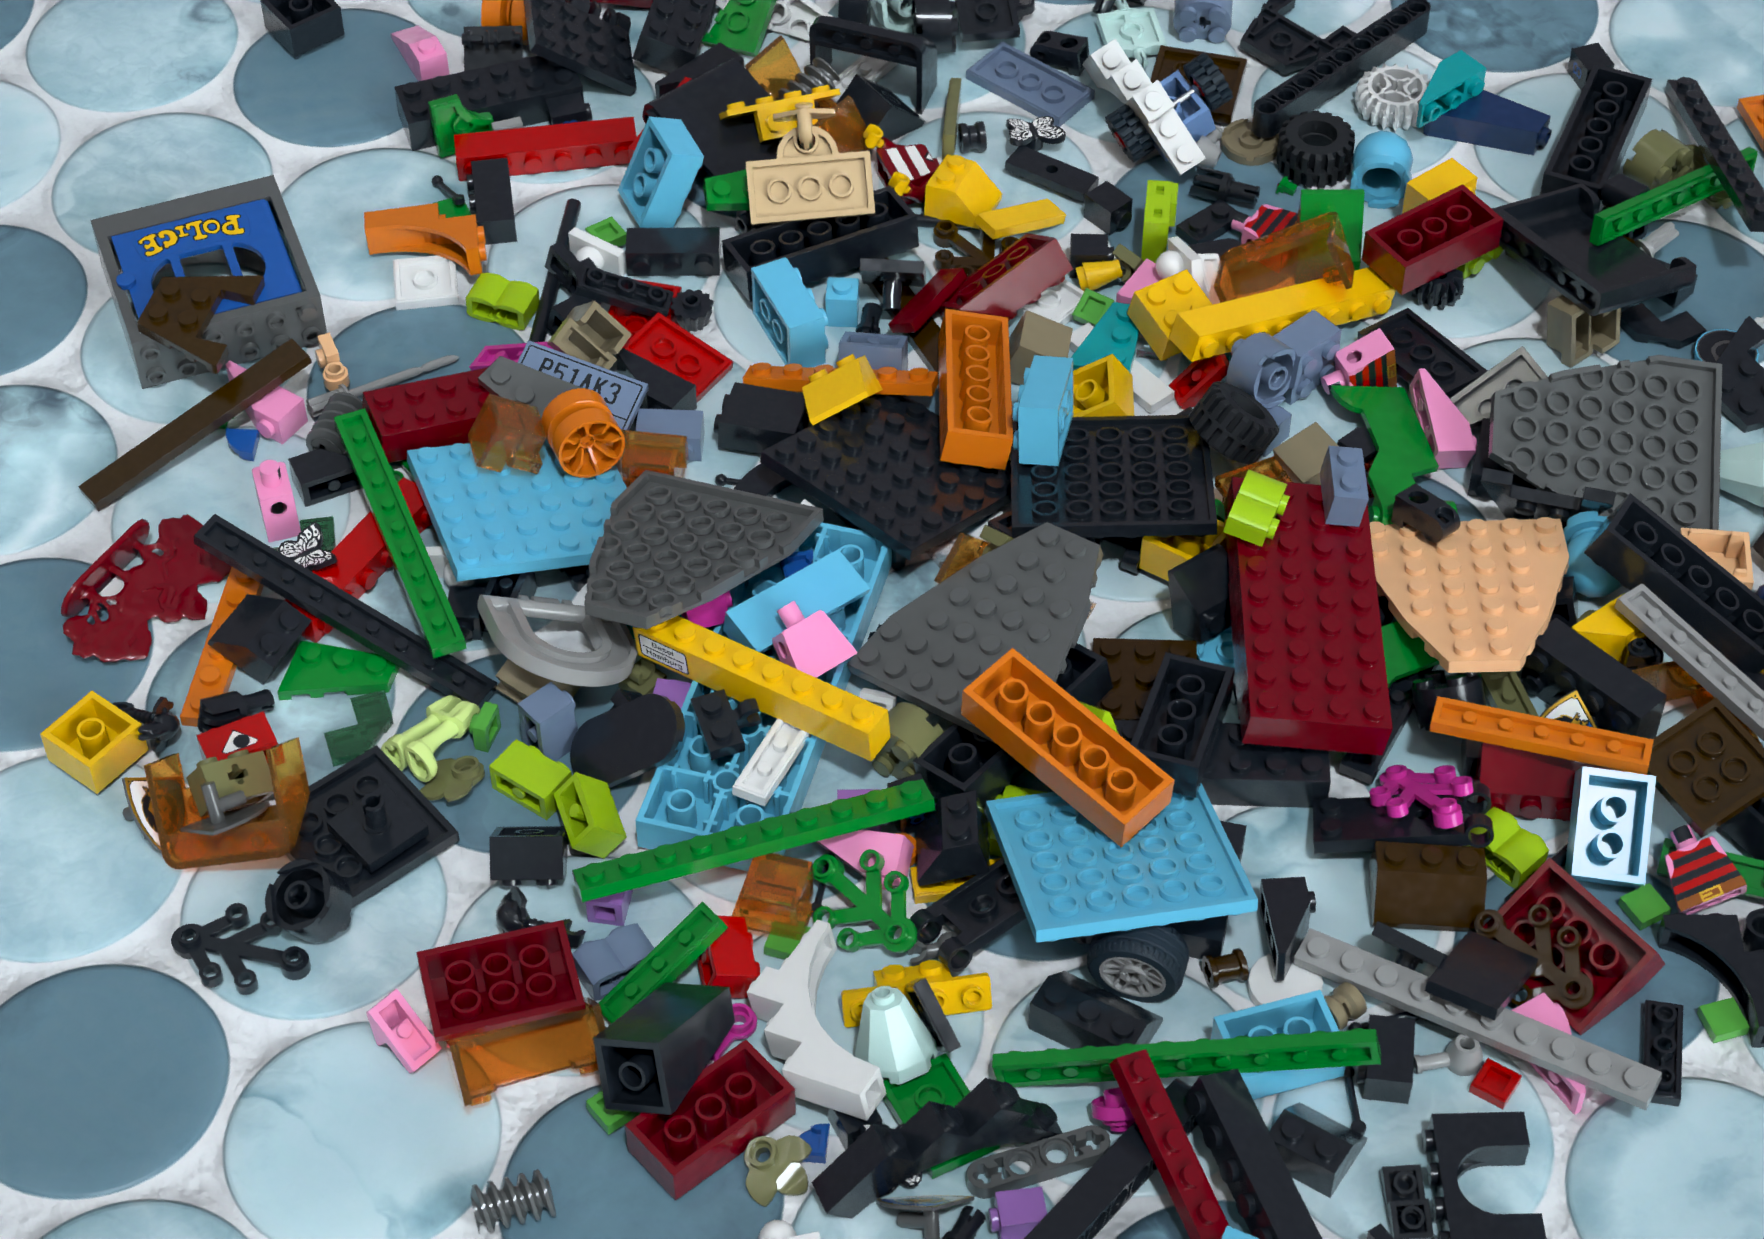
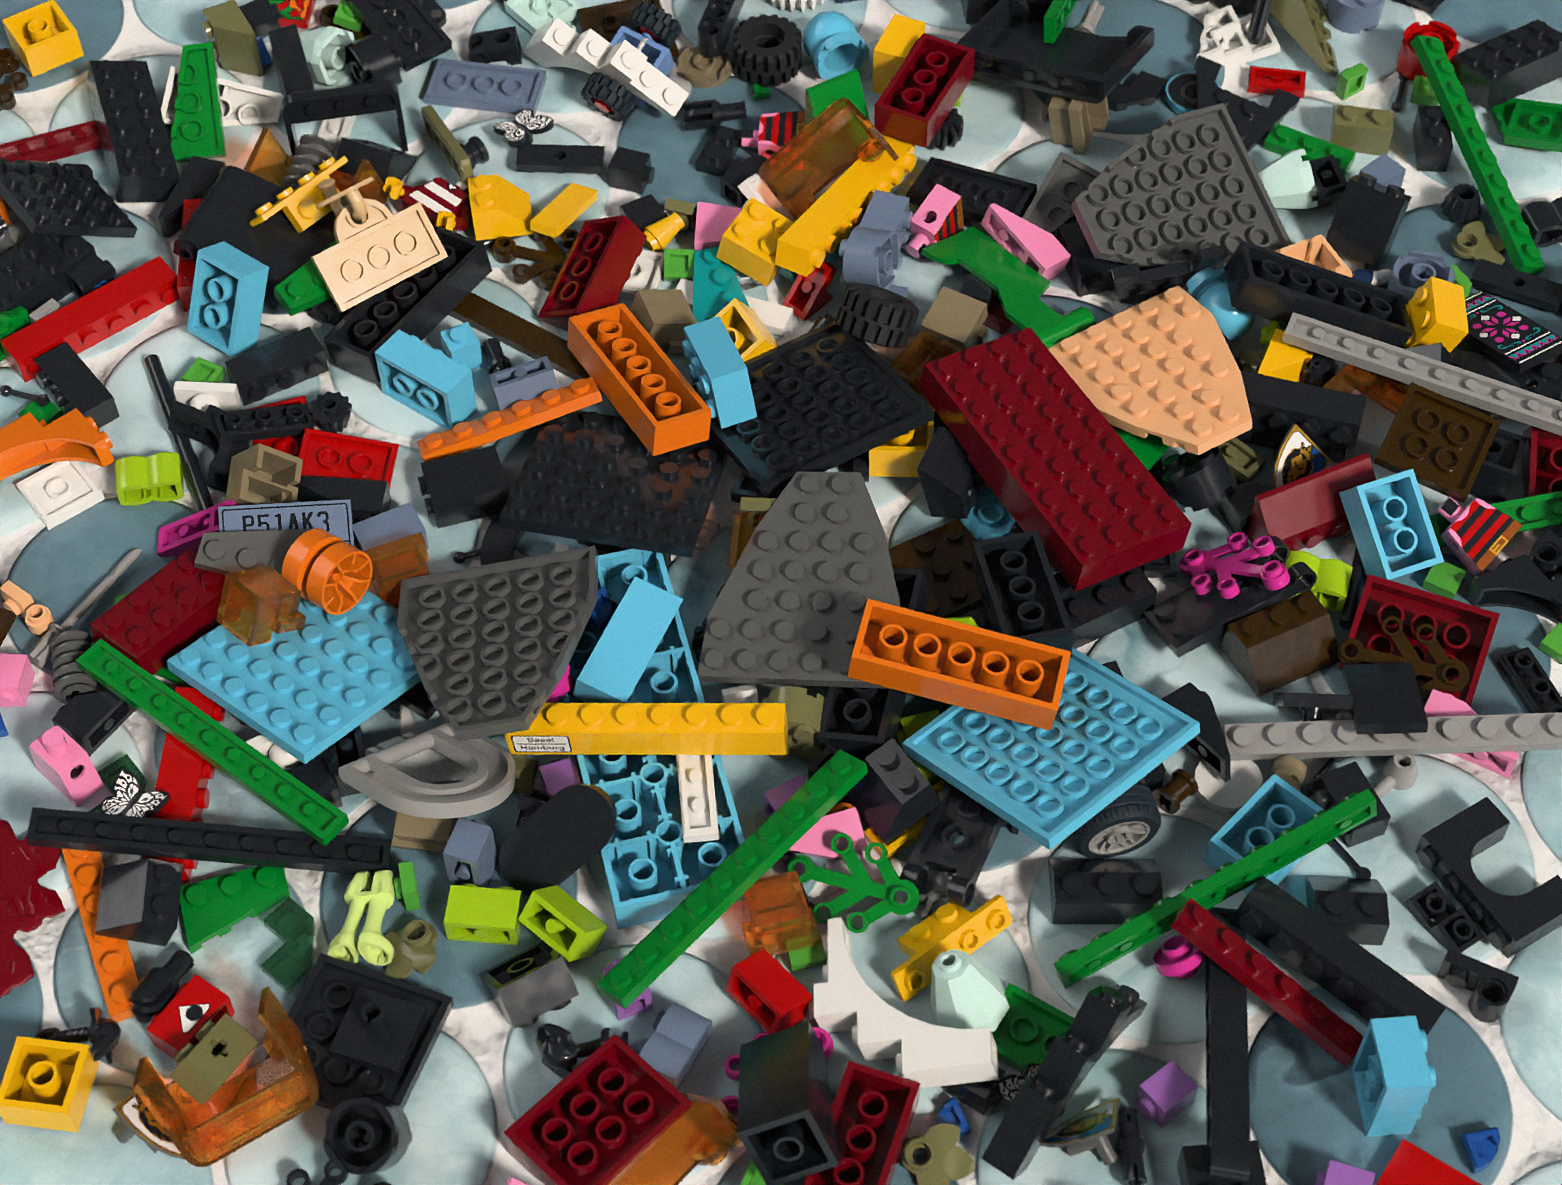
camera: 30 degrees left, 5 degrees up
(218, 819) = (234, 1094): dark grey shield -> none
(665, 961) = (725, 1028): green tile -> none
(721, 724) = (632, 783): black plate -> none
(810, 642) = (668, 672): bright pink torso -> none
(840, 388) = (524, 430): yellow slope -> none
(892, 275) = (497, 308): black tile -> none
(927, 300) = (536, 316): dark red tile -> none
(932, 1015) = (990, 954): black tile -> none
(1035, 1156) = (1140, 1035): dark grey beam -> none
(1159, 215) = (685, 166): lime piece -> none
(1179, 258) = (733, 192): white tile -> none
(1255, 508) = (971, 383): lime brick -> none
(1343, 486) = (1023, 332): sand blue brick -> none
(1425, 513) = (1082, 326): black leg -> none
(1495, 1083) = (1438, 783): red tile -> none
(1541, 735) = (1304, 475): orange plate -> none

